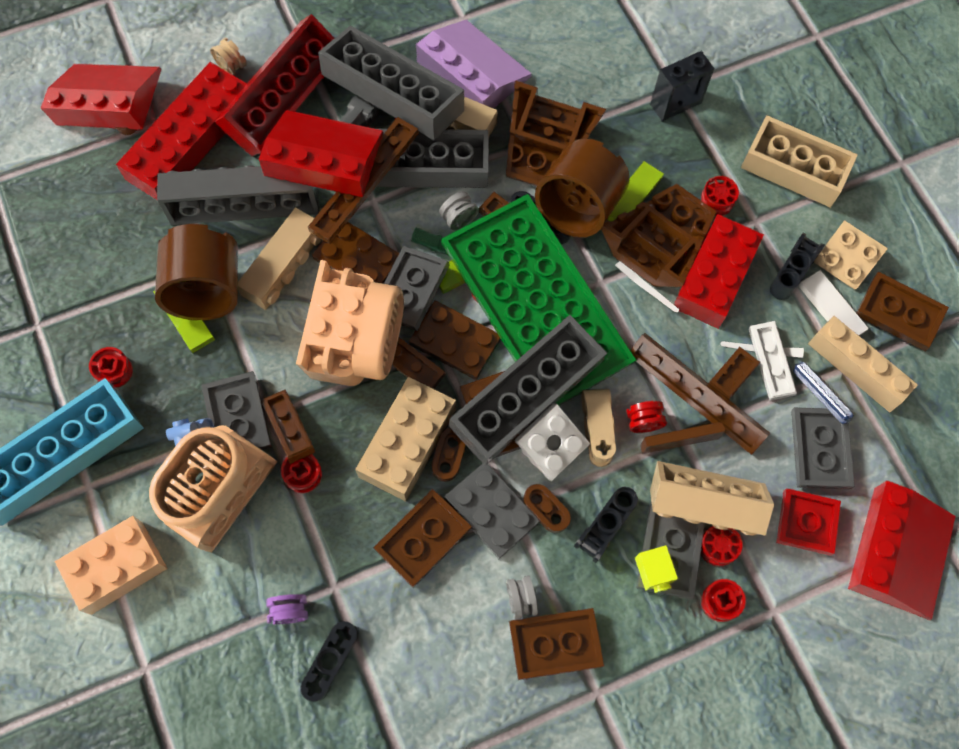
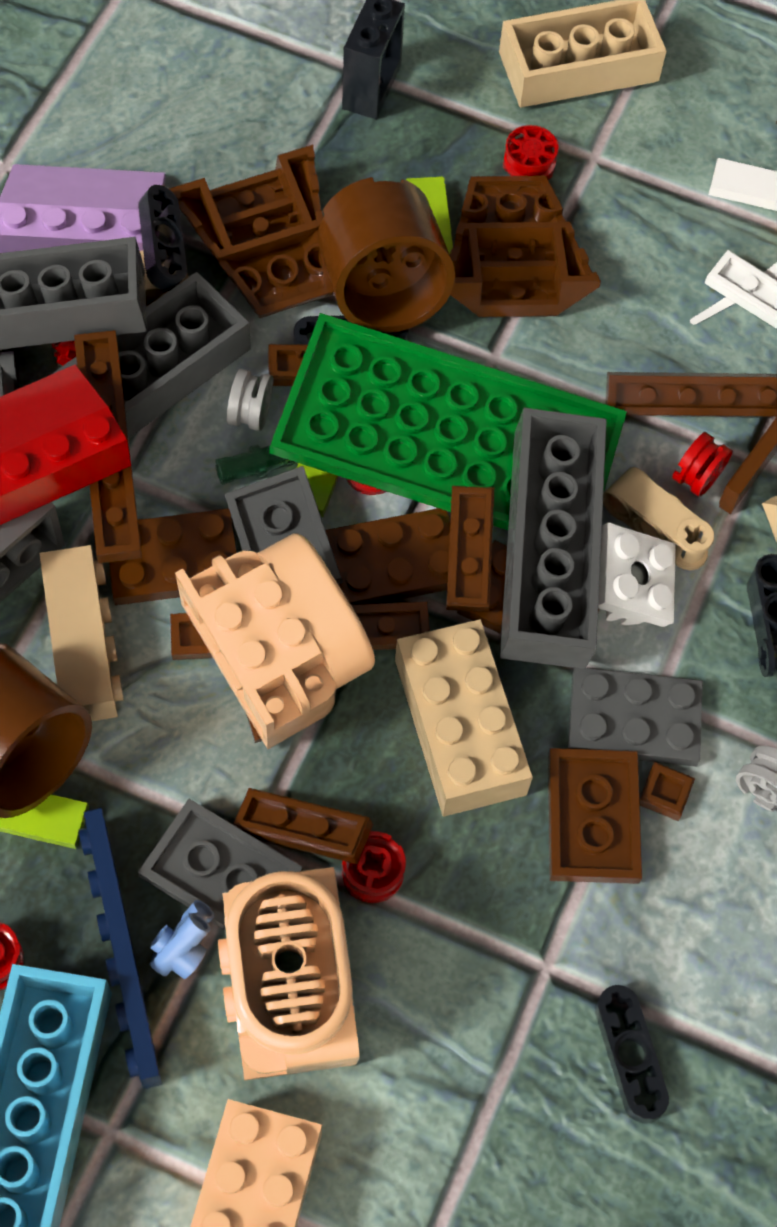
camera: 45 degrees left, 5 degrees down
(167, 406) = (123, 966): none -> dark blue plate
(286, 610) = (532, 1039): medium lavender wheel -> none
(448, 456) = (528, 696): reddish brown plate -> none
(470, 557) = (666, 791): none -> reddish brown tile
(478, 103) = (154, 250): none -> black beam
(487, 363) = (470, 549): none -> reddish brown tile
(547, 508) = (693, 657): reddish brown plate -> none
(643, 284) = (531, 323): white sticker -> none
(718, 271) = (620, 239): red brick -> none
(734, 373) = (741, 340): reddish brown plate -> none
(803, 255) = (690, 173): black piece -> none
(850, 255) = (733, 116): tan bracket -> none

